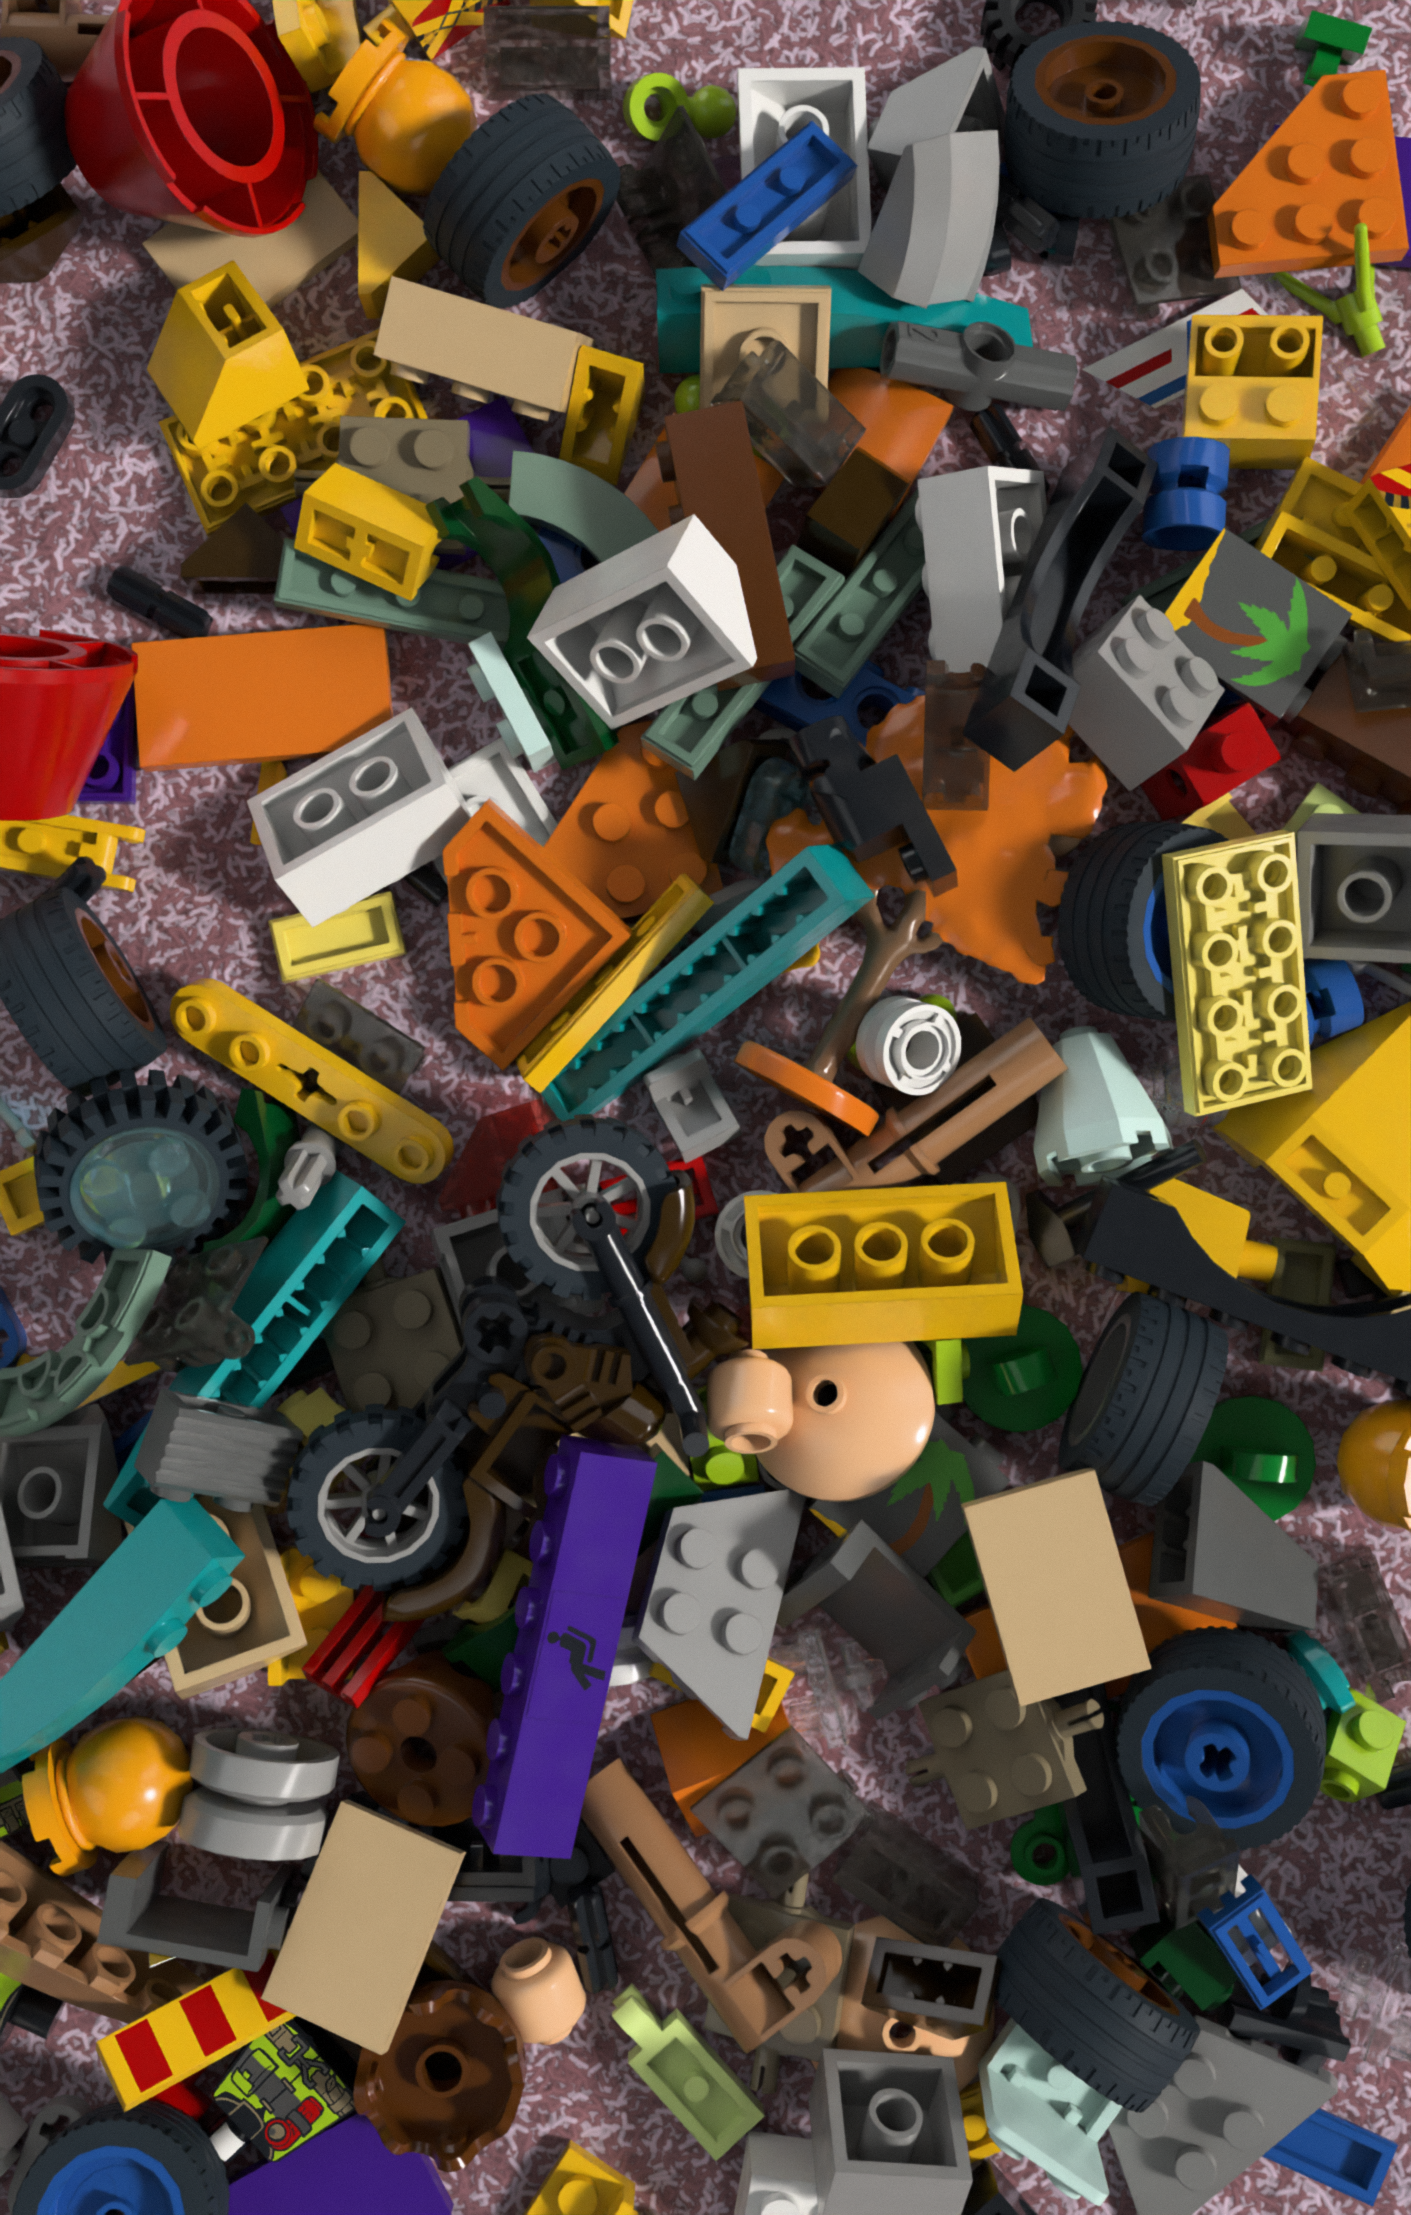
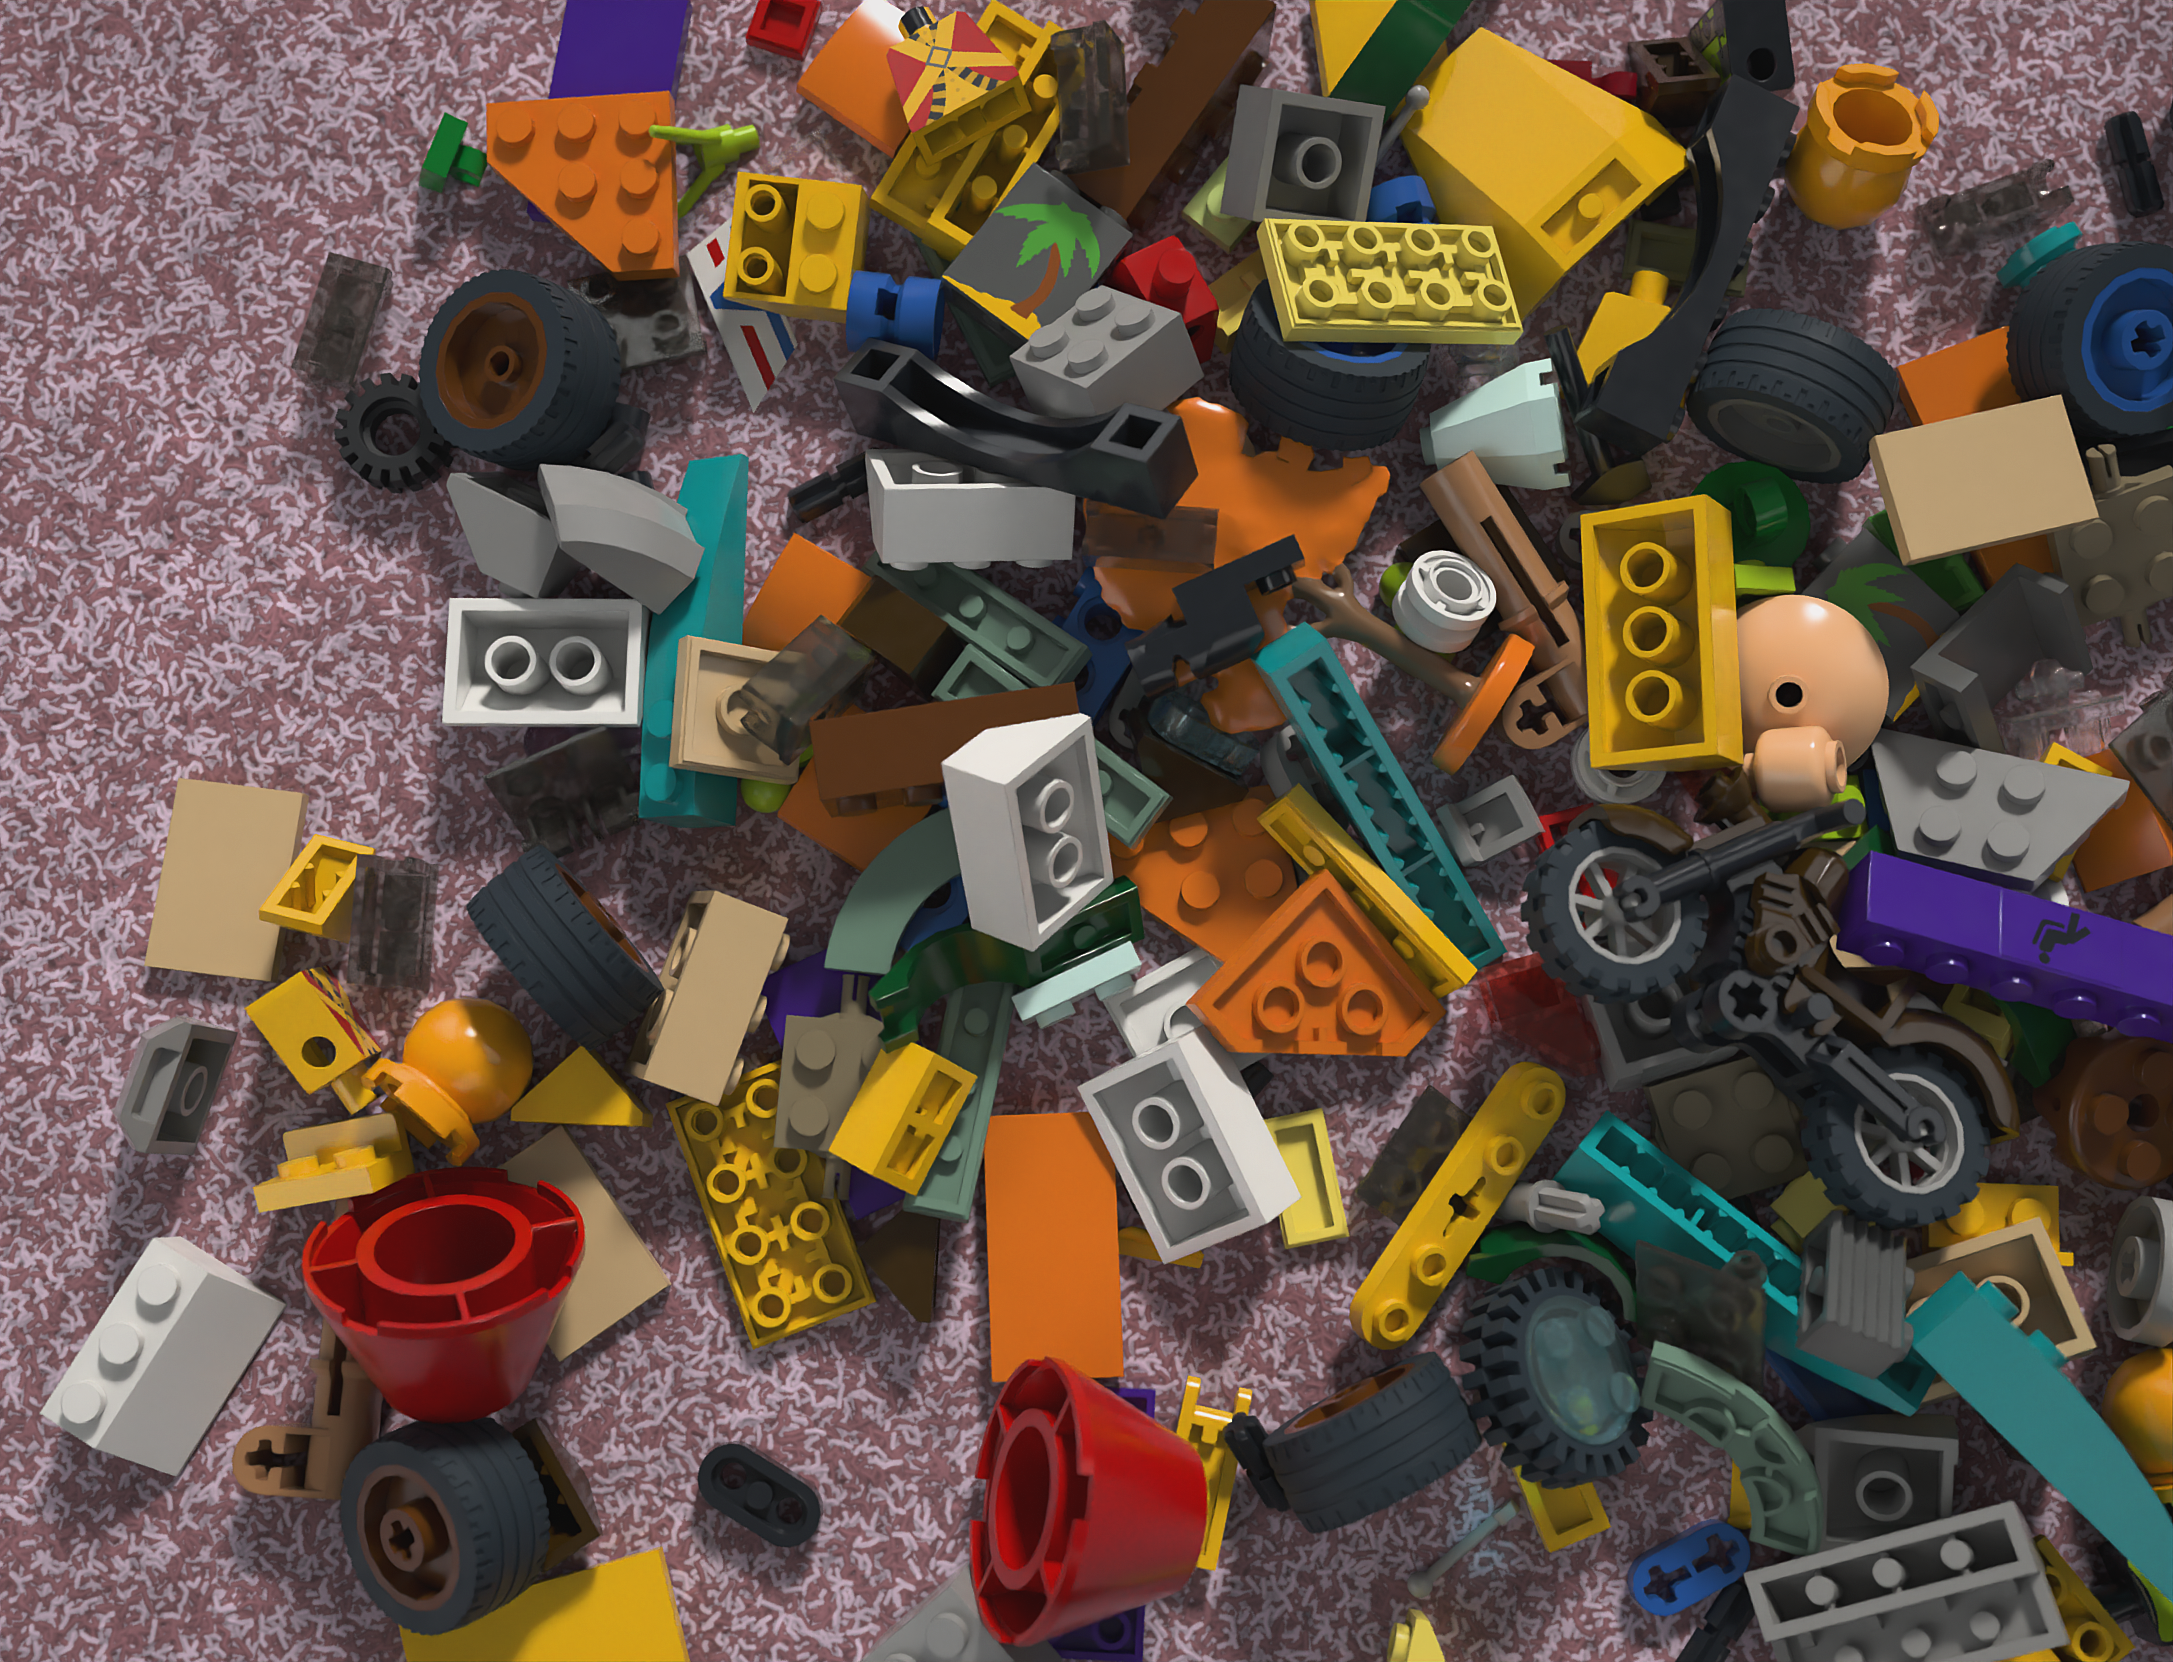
camera: 85 degrees left, 5 degrees down
(151, 600) = (941, 1365): black piece -> none
(223, 357) = (704, 1269): yellow slope -> none
(351, 1639) = (2028, 1196): red tile -> none
(602, 412) = (782, 883): yellow slope -> none
(709, 108) = (461, 766): lime plate -> none
(766, 205) = (596, 696): blue tile -> none
(977, 366) = (758, 506): dark grey piece -> none
(1229, 1557) = (1941, 325): dark grey slope -> none
(1260, 1451) = (1843, 292): green tile -> none
(1360, 1750) = (2110, 216): lime bracket -> none

